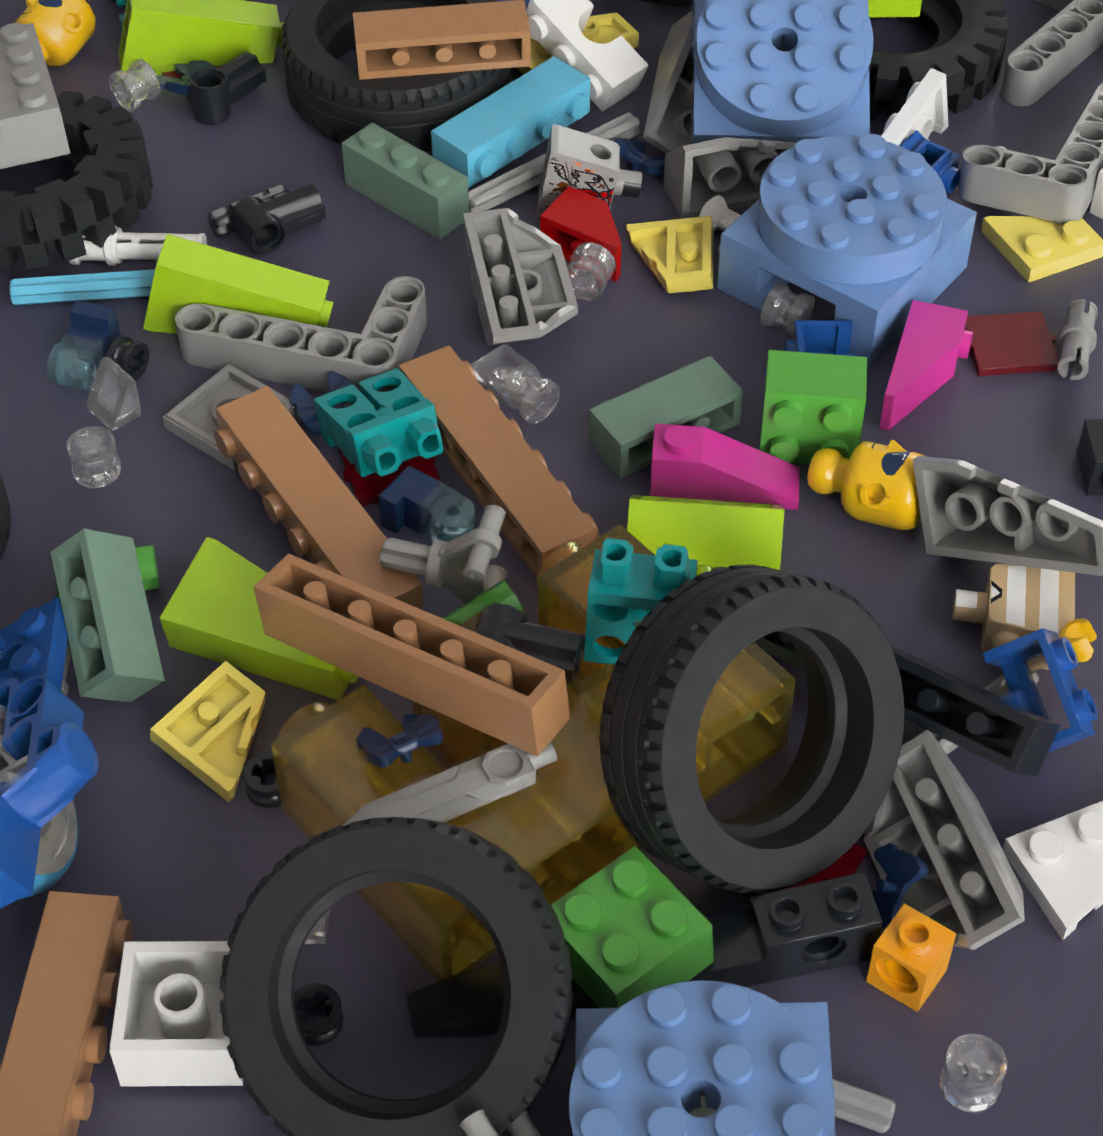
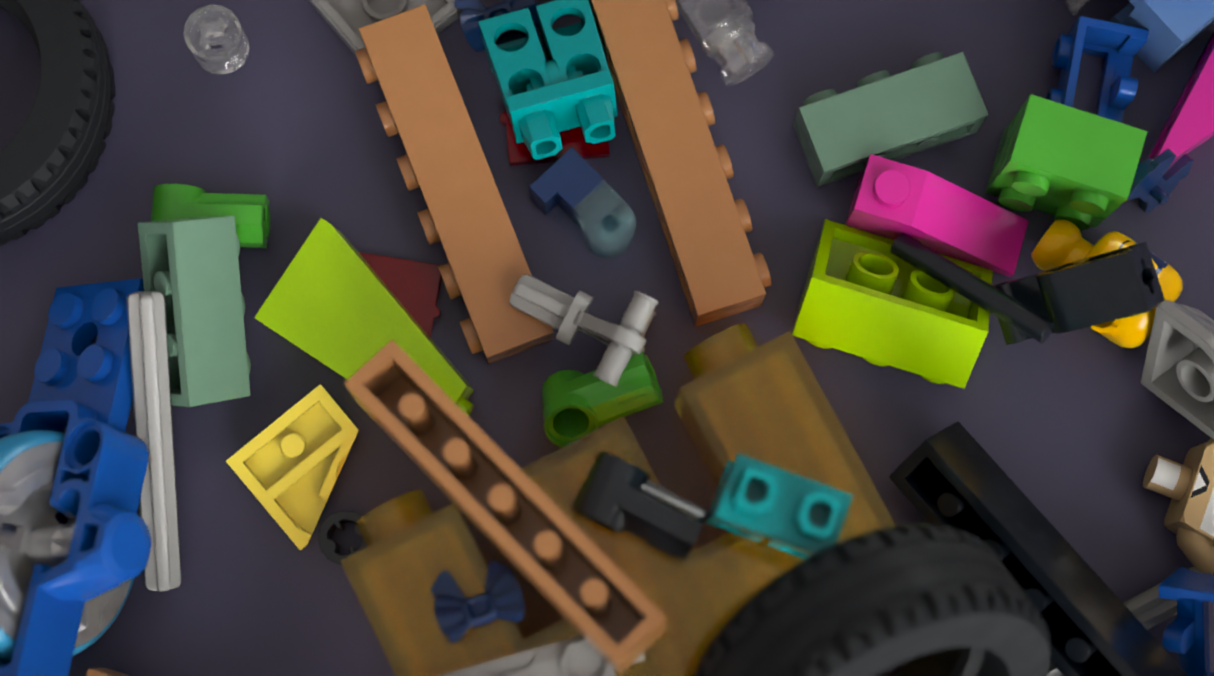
camera: 10 degrees right, 30 degrees up
(81, 687) = (155, 427): none -> light grey axle
(764, 495) = (972, 288): none -> black bar
(848, 476) = (1088, 291): none -> black piece
(881, 411) = (1150, 184): none -> dark blue piece

